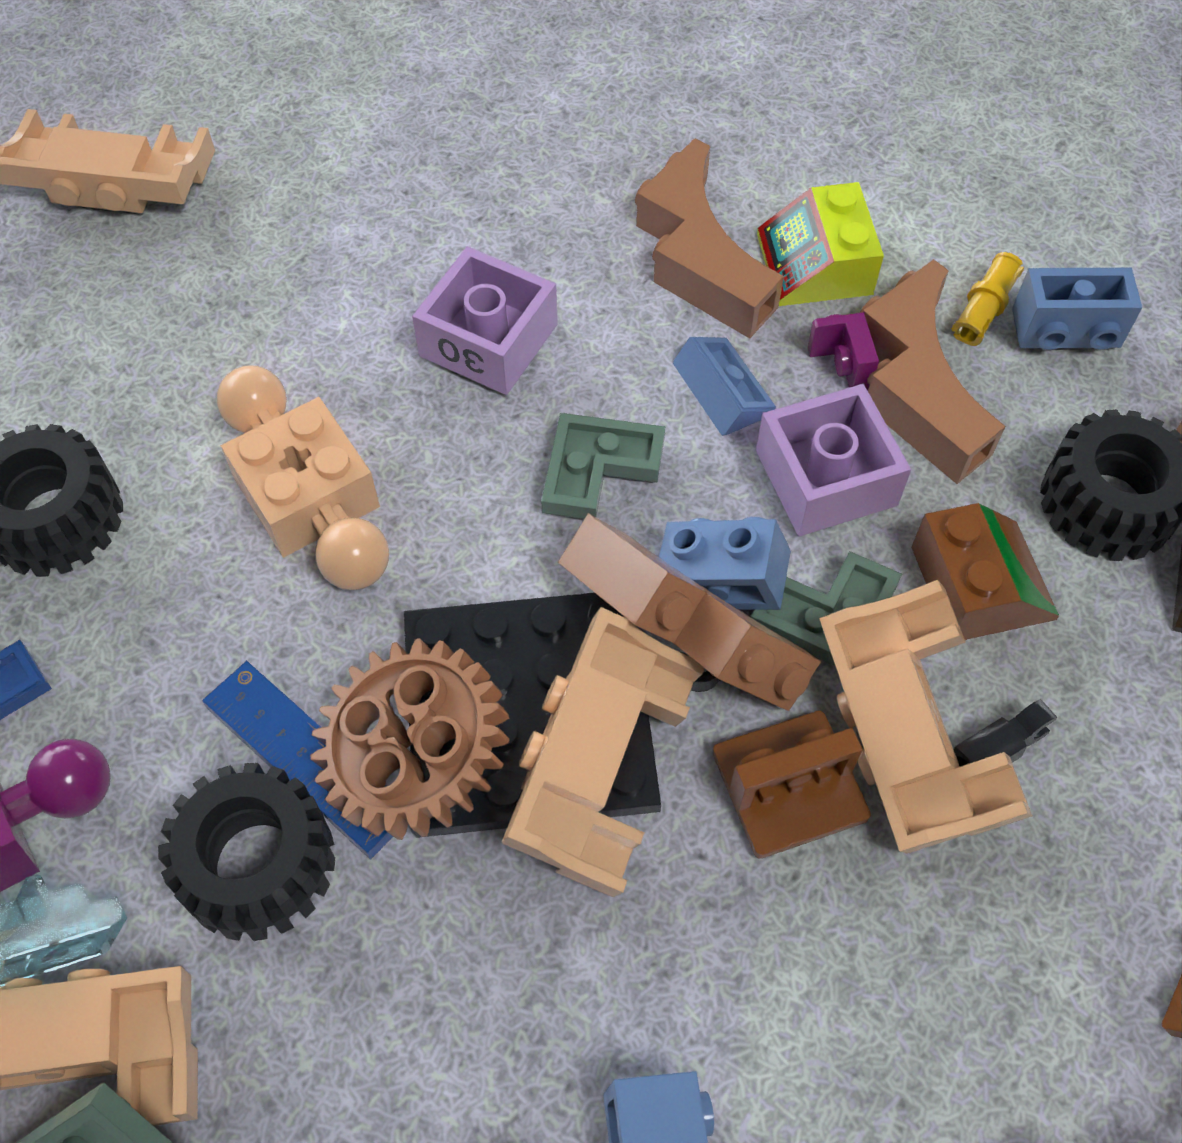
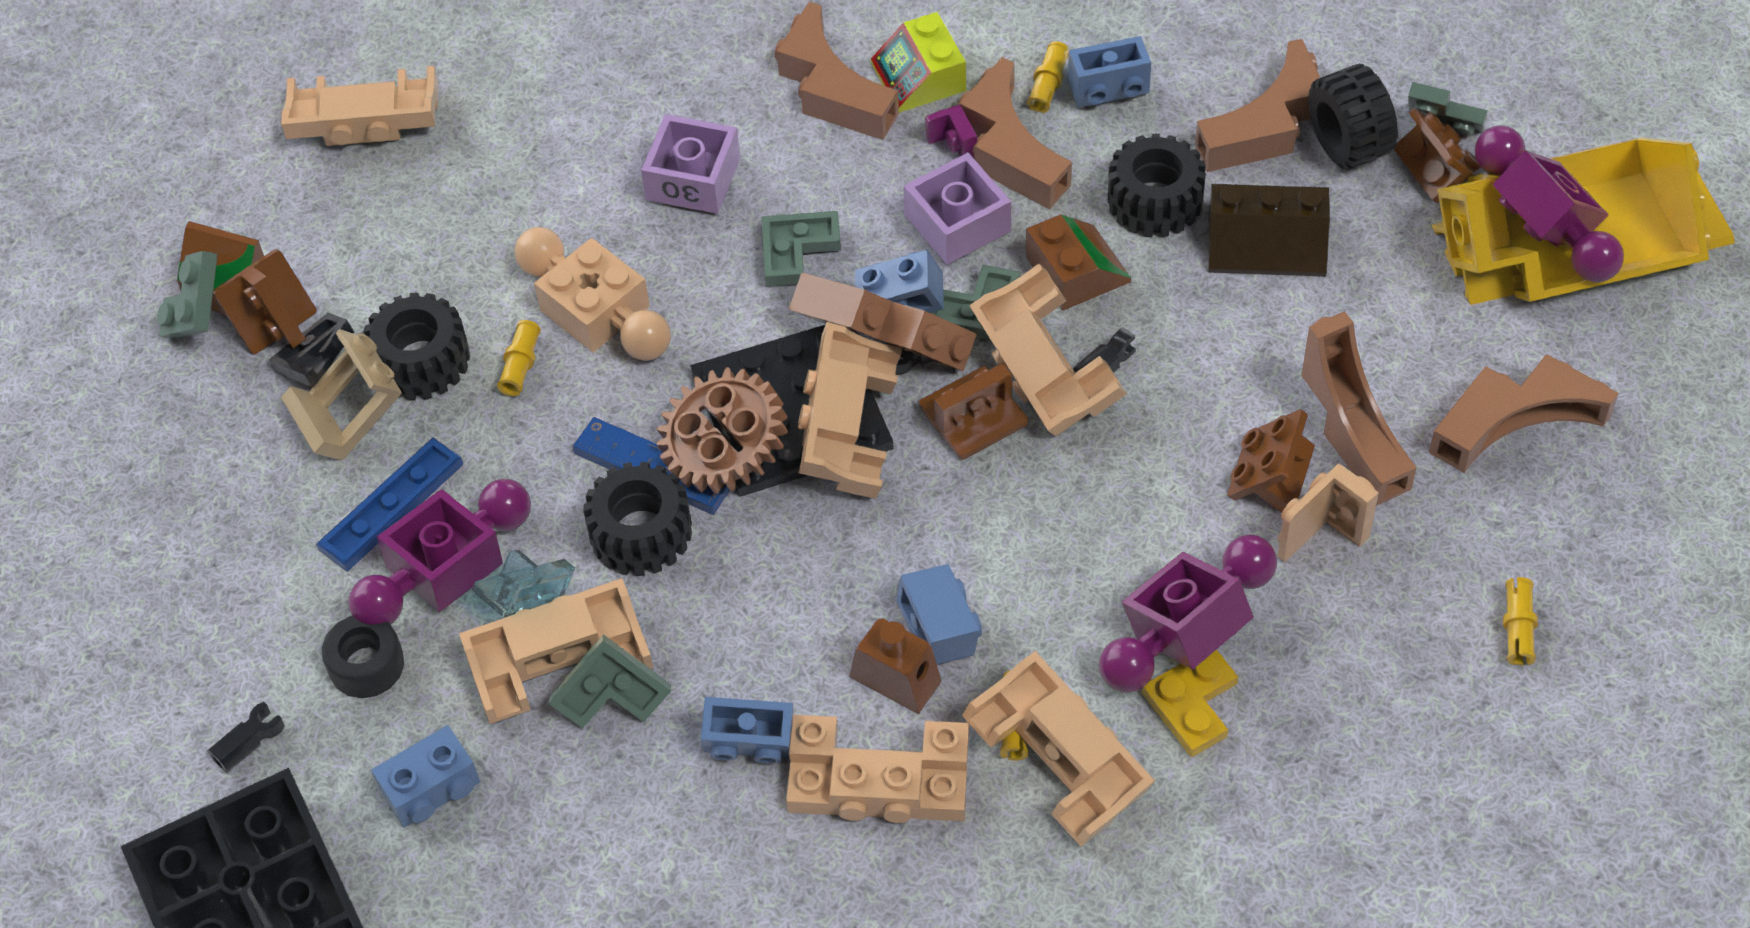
camera: 10 degrees left, 5 degrees down
(176, 546) = (519, 358): none -> yellow pin
(722, 383) = (869, 174): medium blue slope -> none

